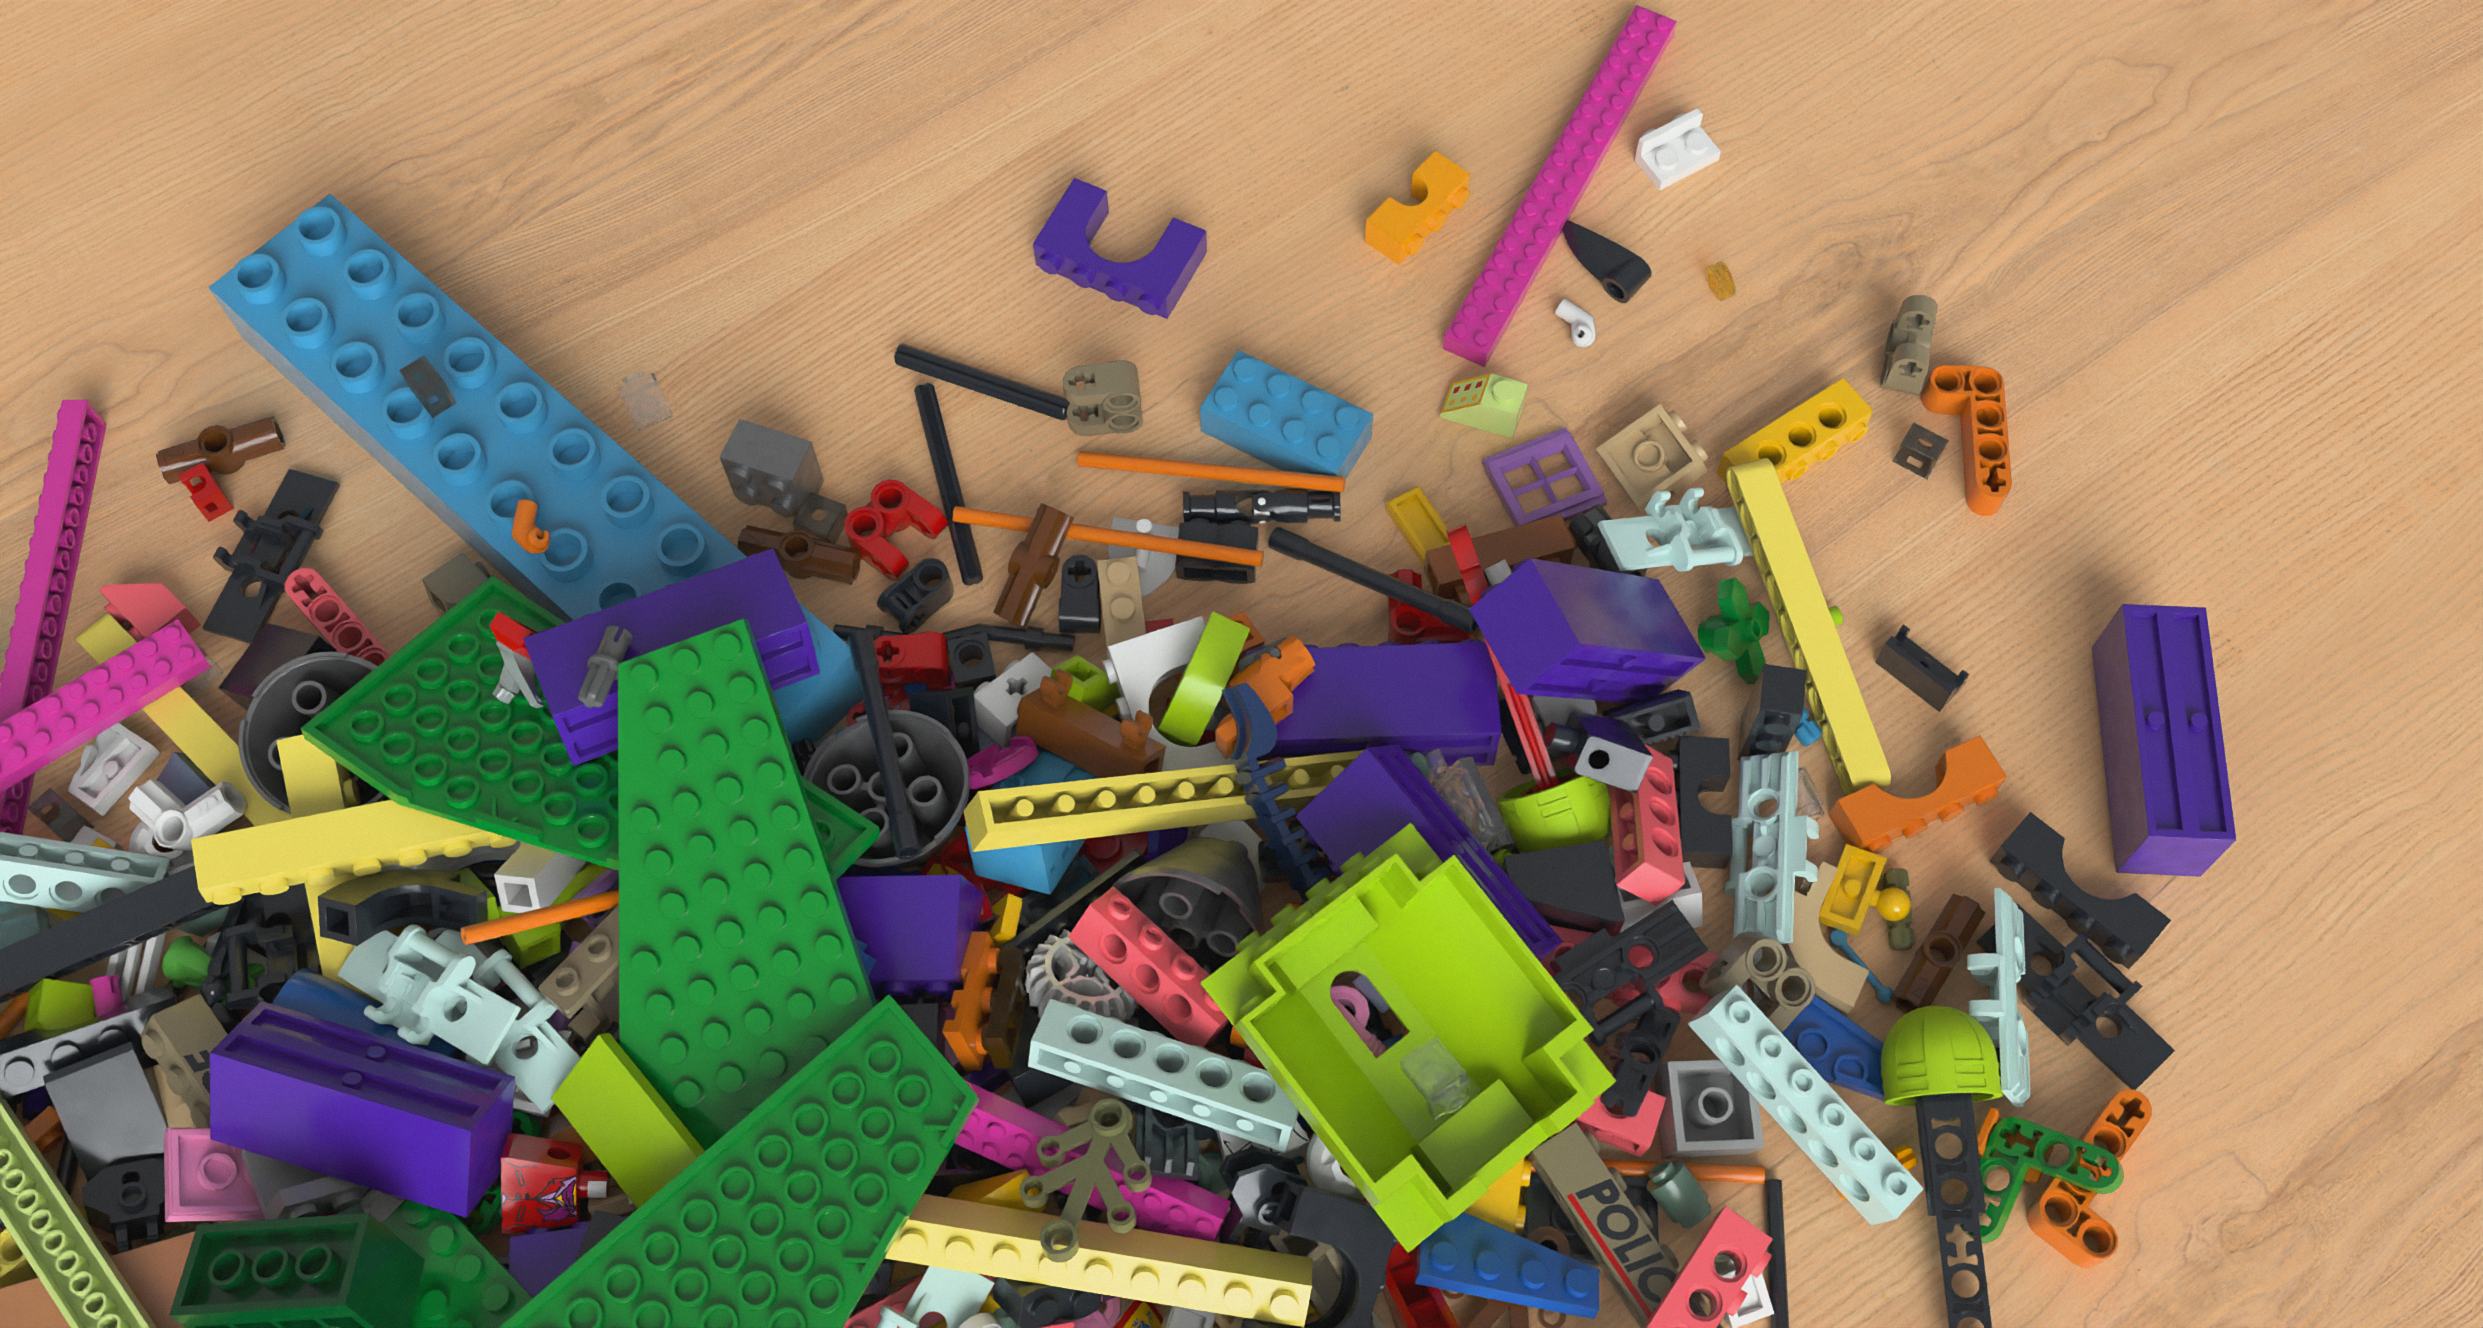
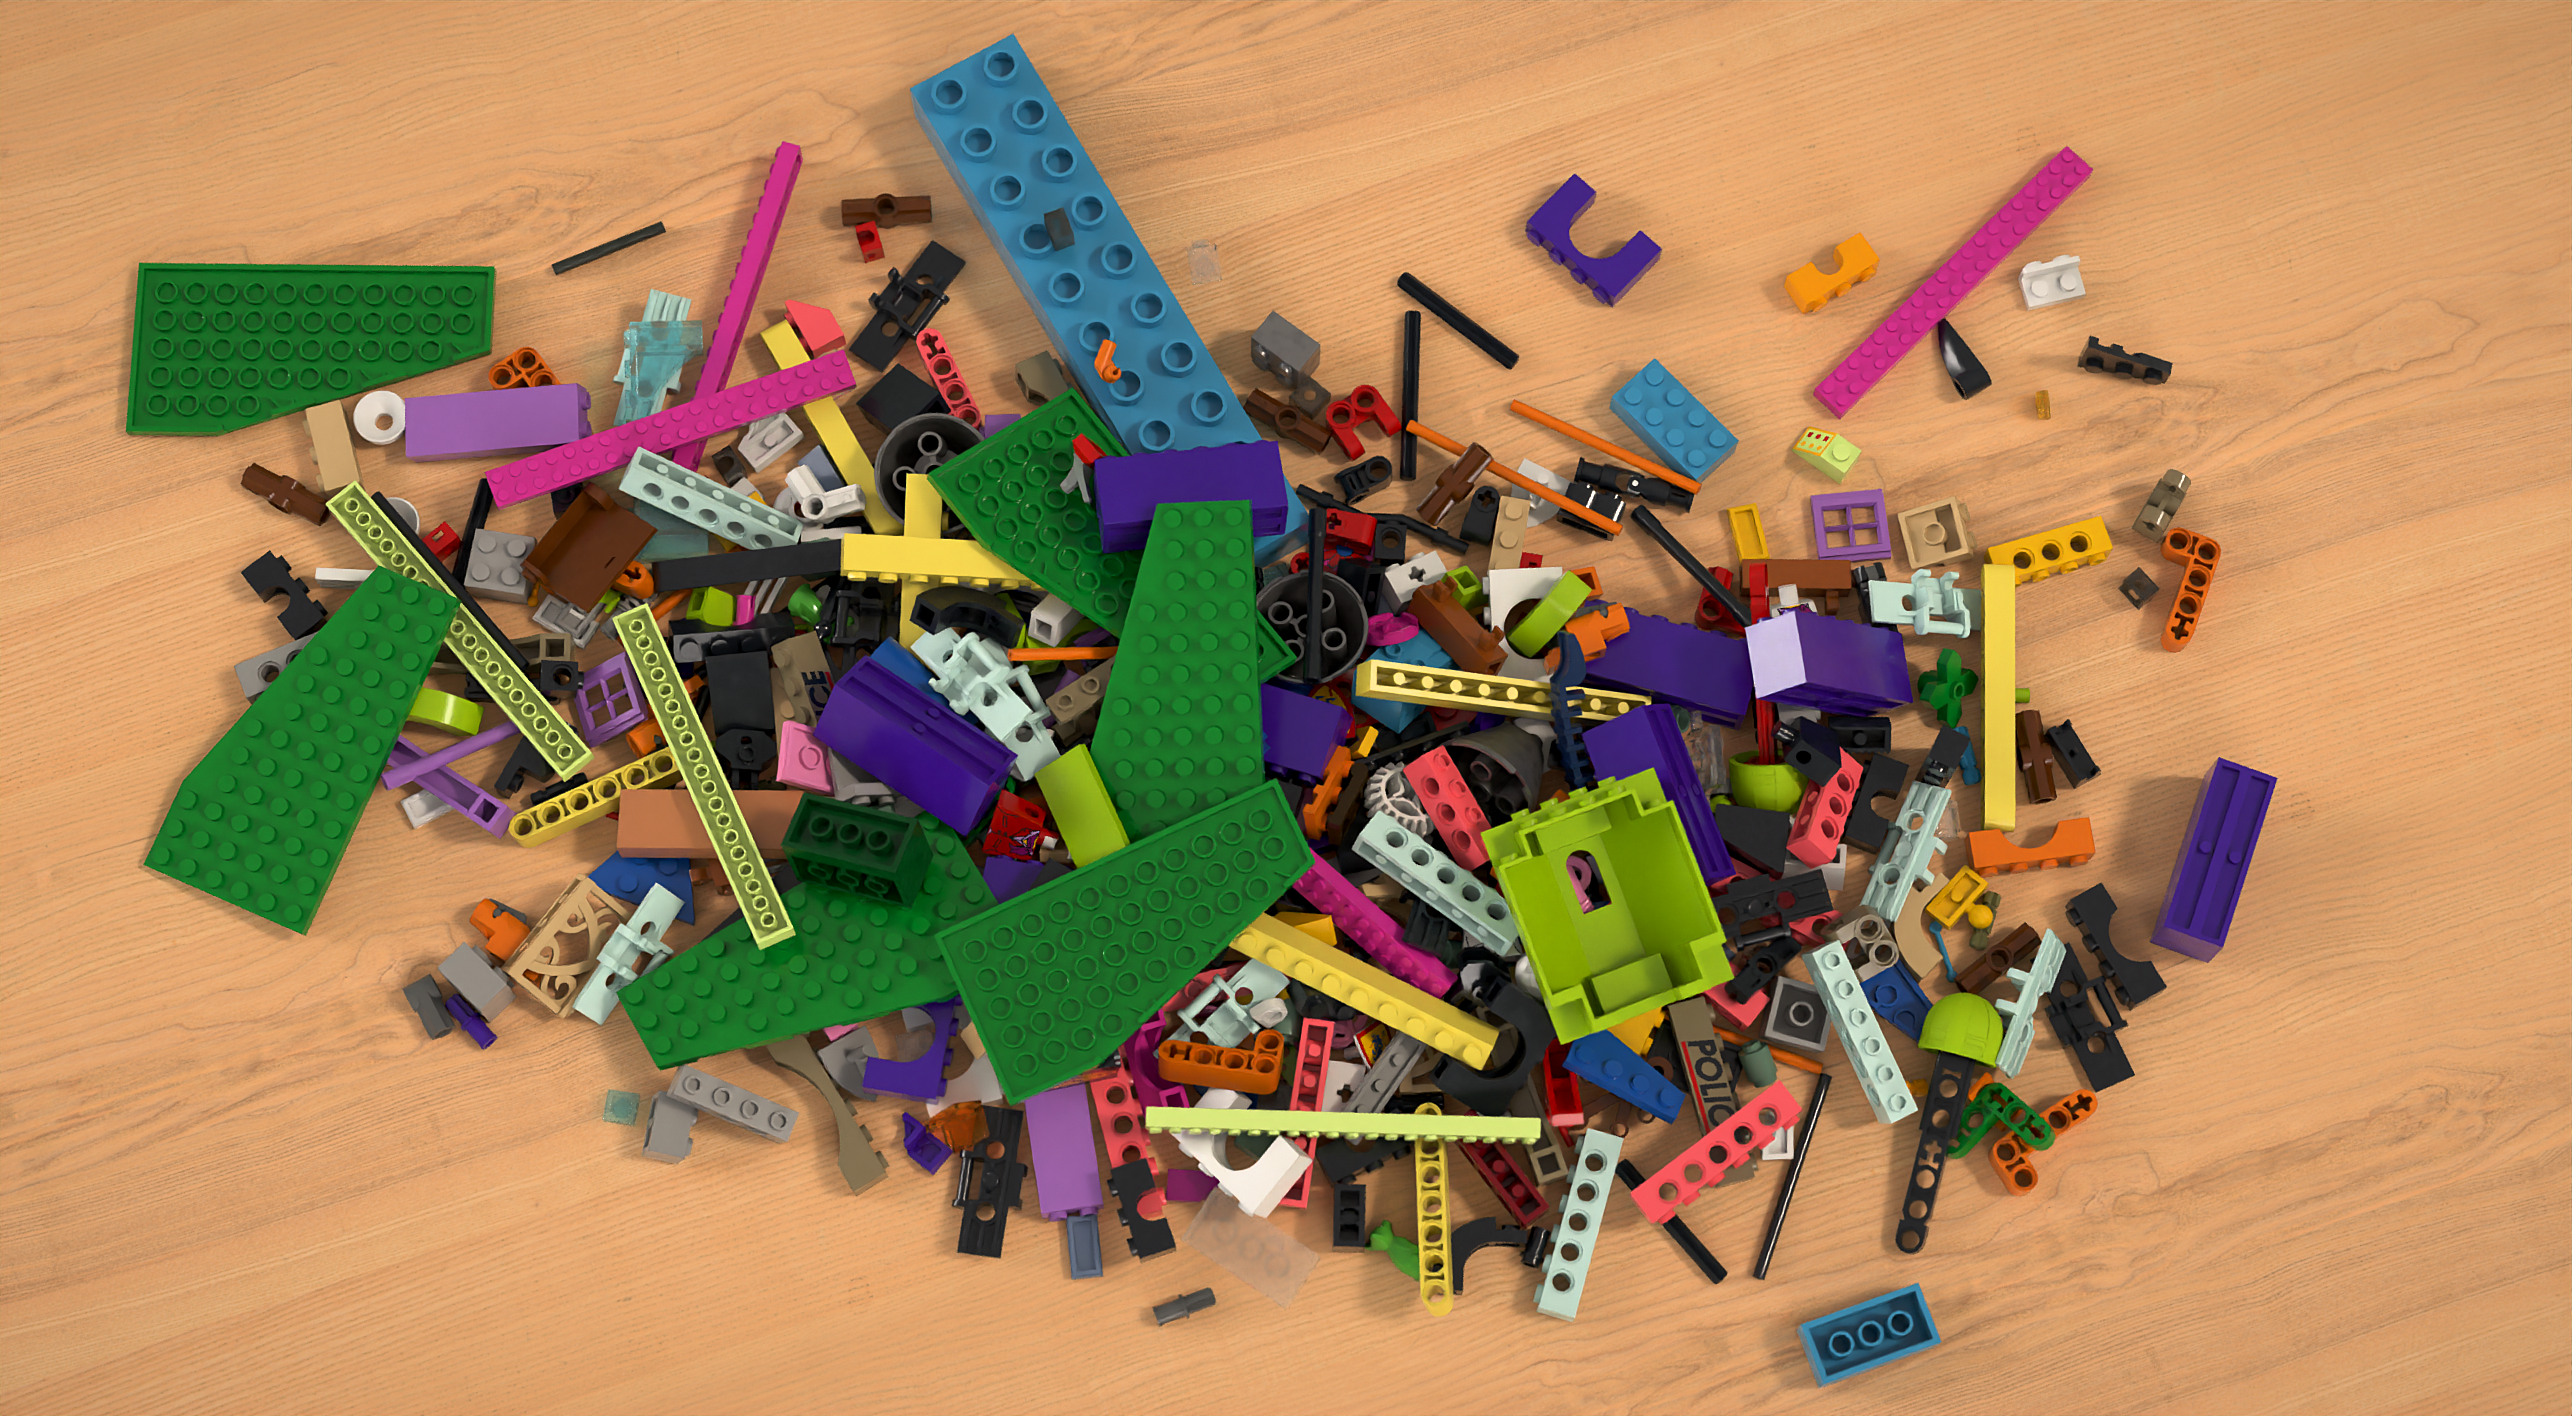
camera: 15 degrees right, 10 degrees up
(604, 667) = (1146, 500): dark grey axle -> none
(1086, 1173) = (1370, 931): olive plant -> none
(1113, 397) = (1552, 368): dark tan piece -> none
(1437, 1078) = (1619, 939): clear bracket -> none
(1582, 323) = (1925, 406): white arm -> none
(1786, 208) = (2115, 360): none -> black wing
(1882, 687) = (2034, 757): none -> reddish brown piece

